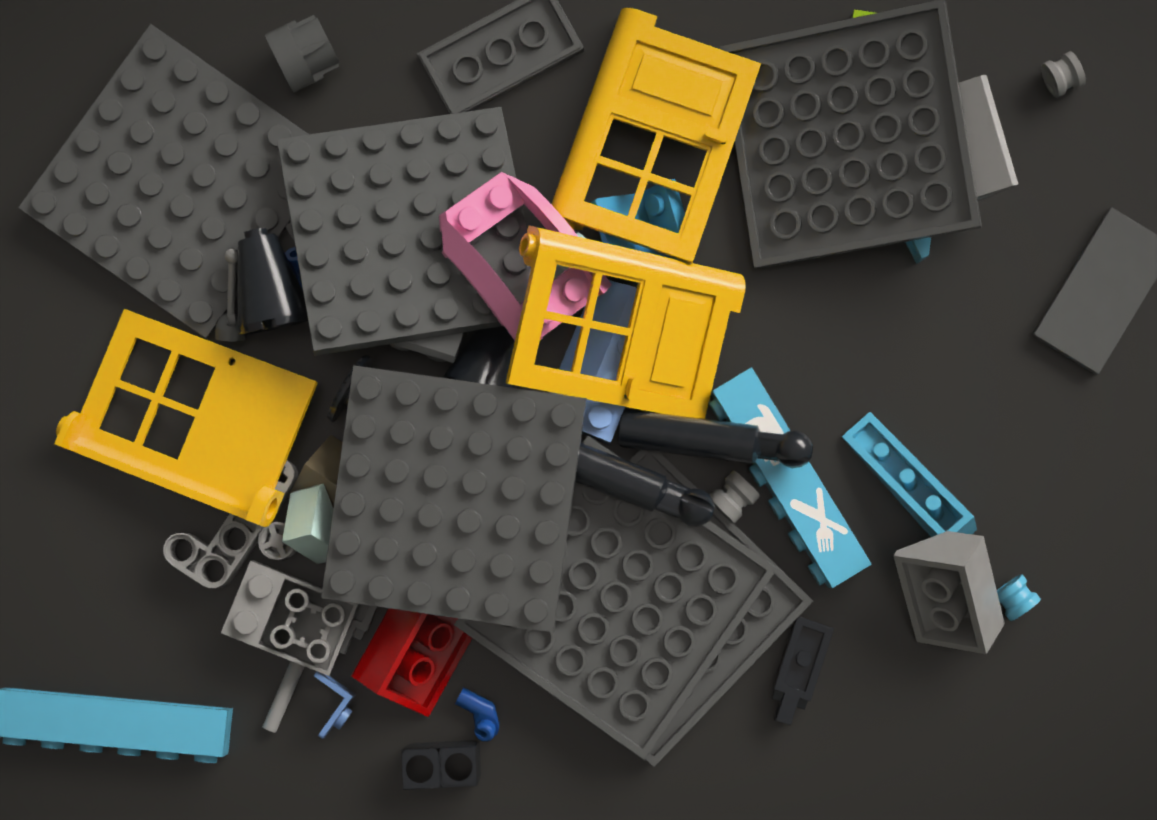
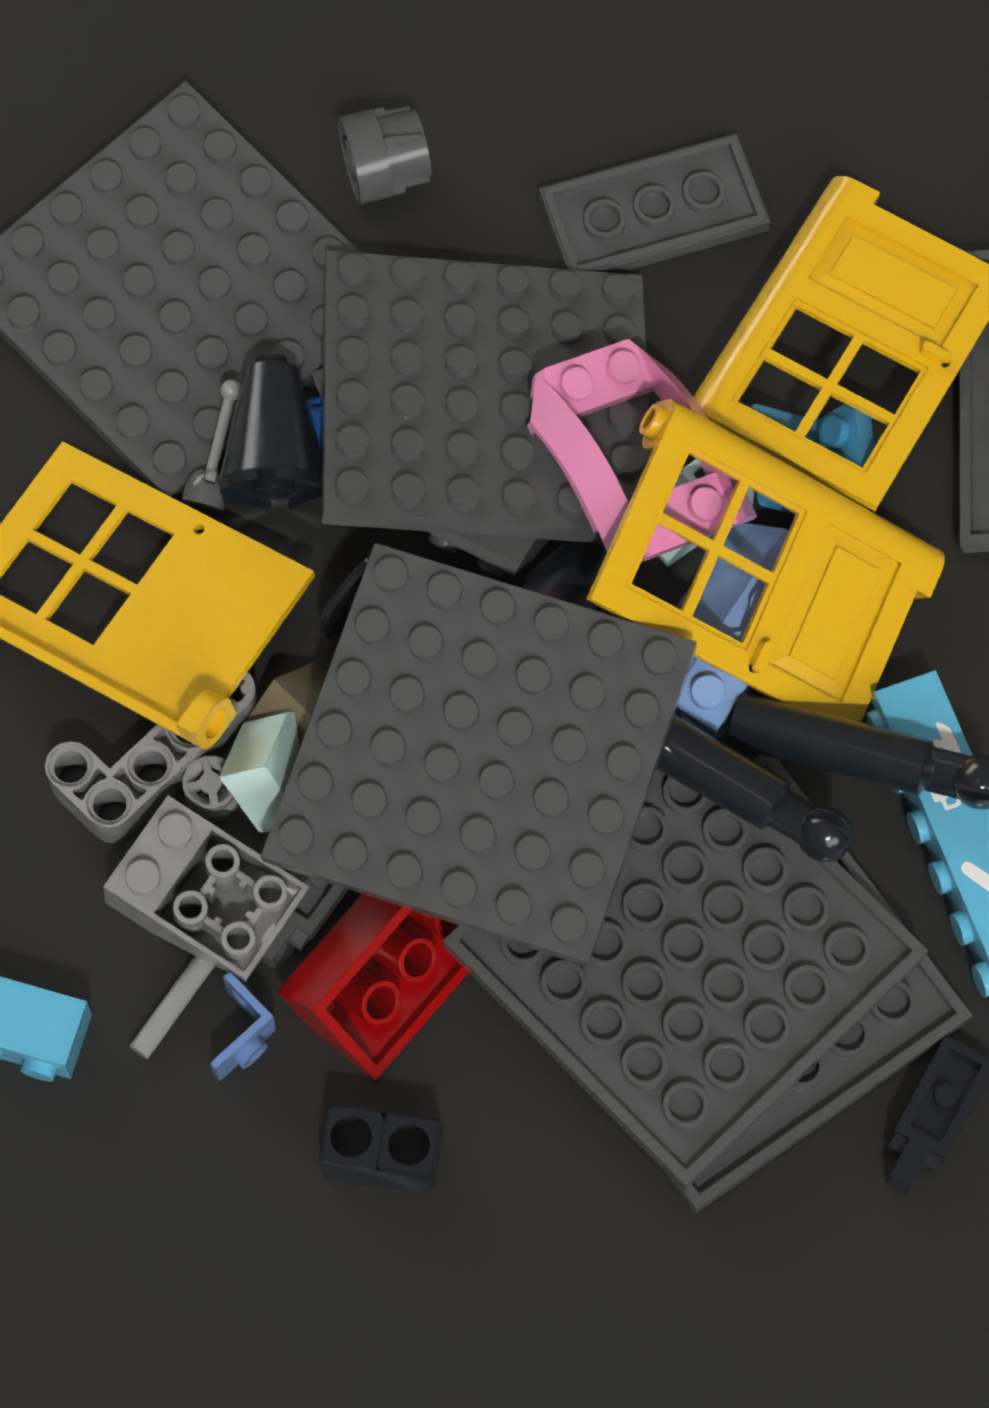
camera: 10 degrees right, 15 degrees down
(483, 713) = (457, 1087): blue arm -> none
(734, 496) = (883, 847): light grey wheel -> none

